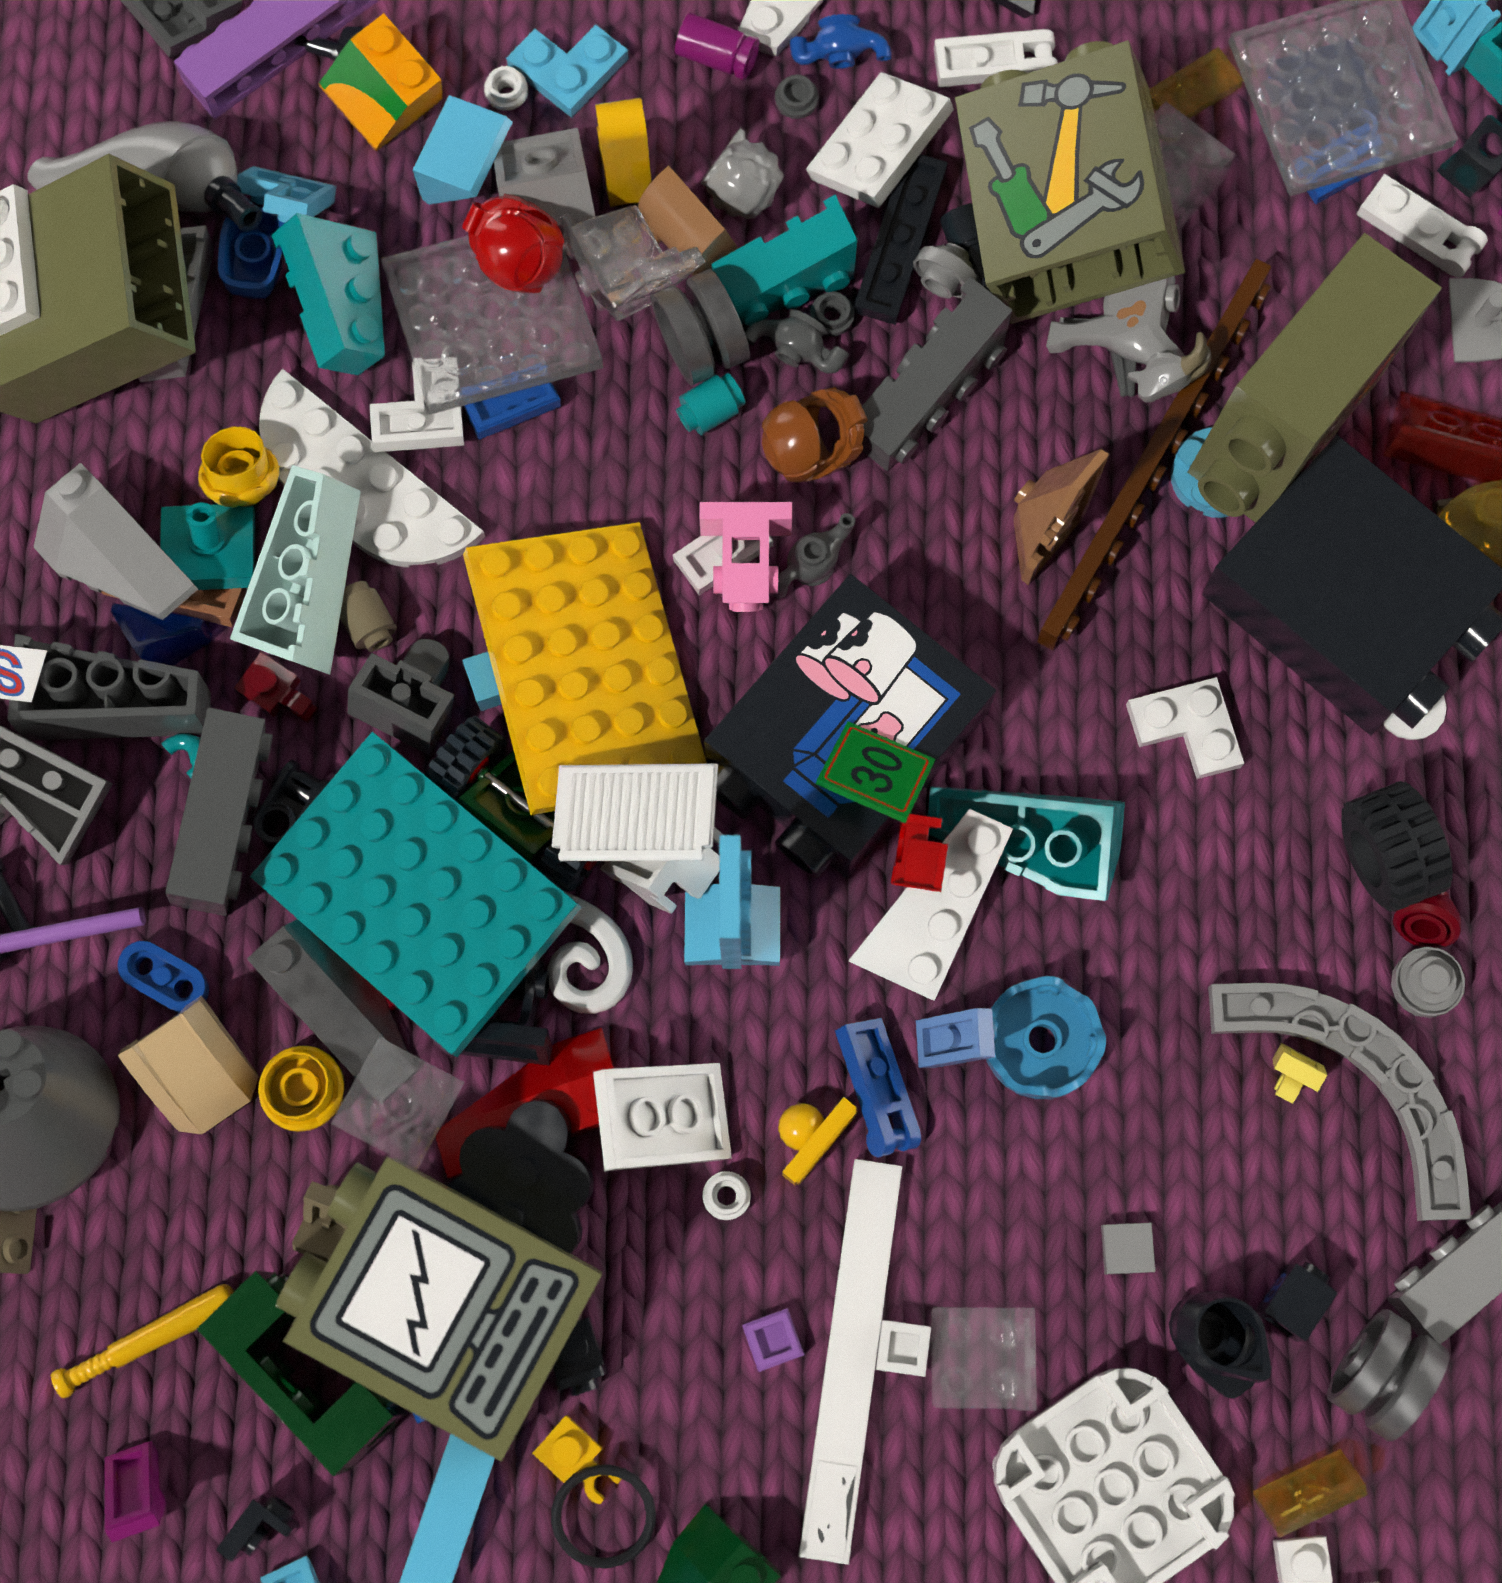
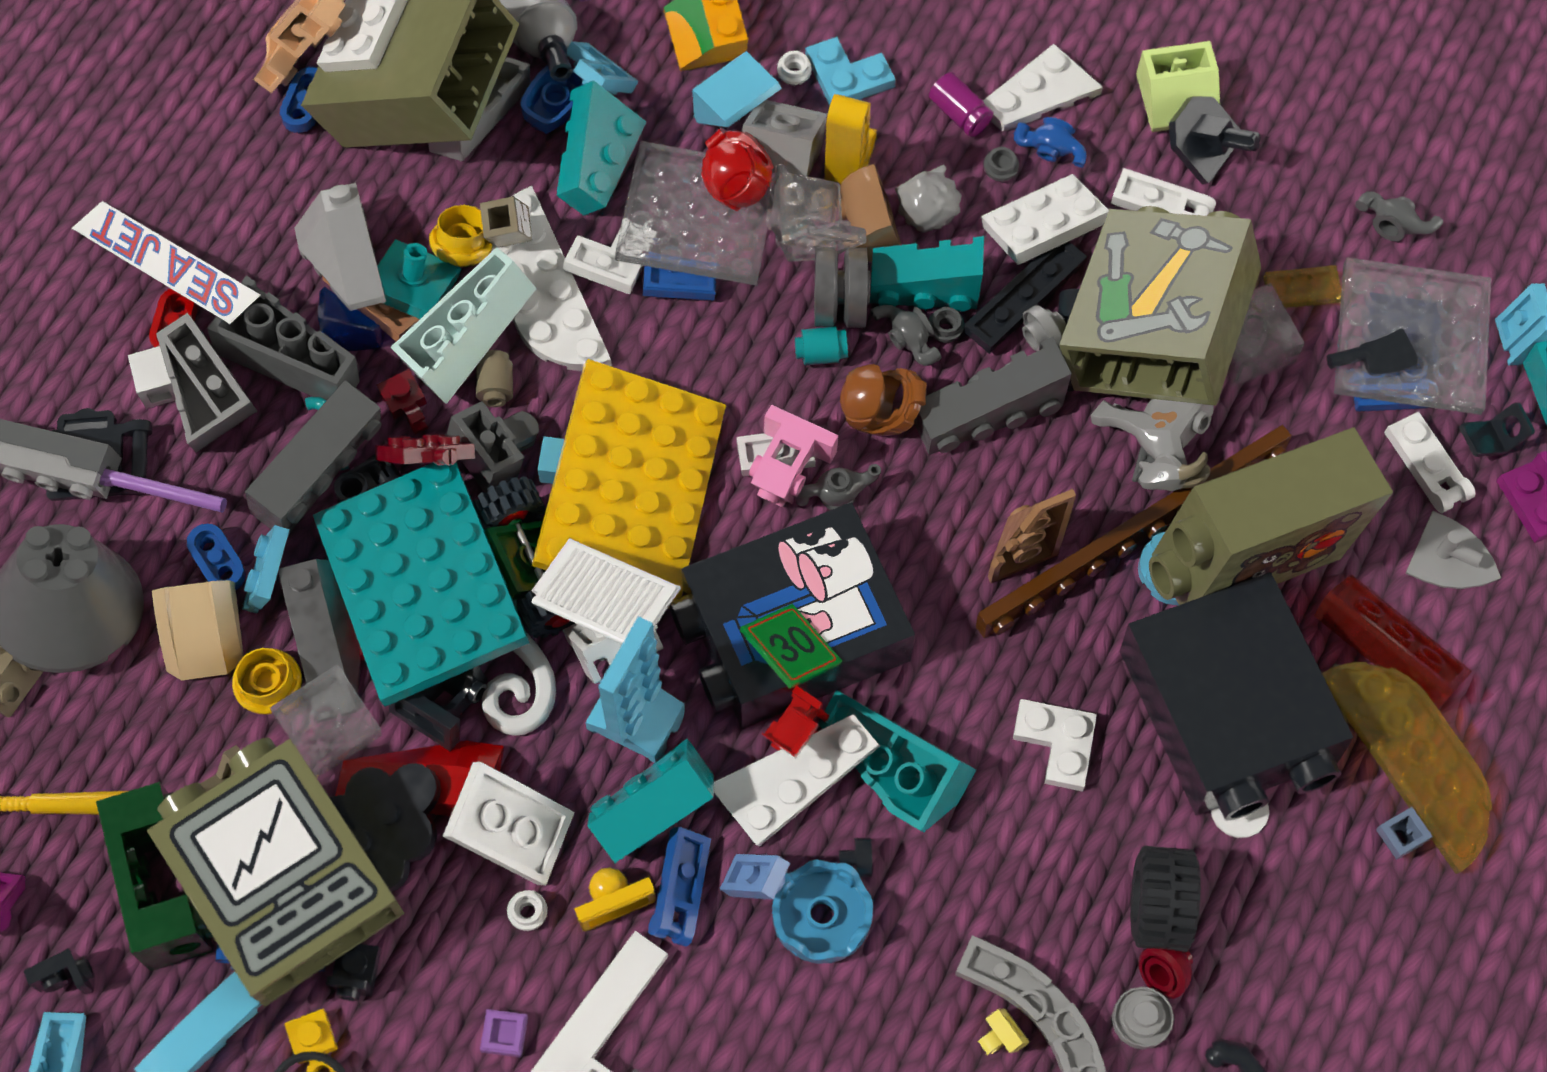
camera: 25 degrees right, 10 degrees down
(229, 963) = (263, 576): none -> medium azure plate
(283, 428) = (506, 221): none -> dark tan brick
(341, 742) = (431, 448): none -> dark red plate
(803, 1011) = (652, 801): none -> teal wedge
(1051, 959) = (859, 857): none -> black tile
(1322, 132) = (1380, 356): none -> black piece

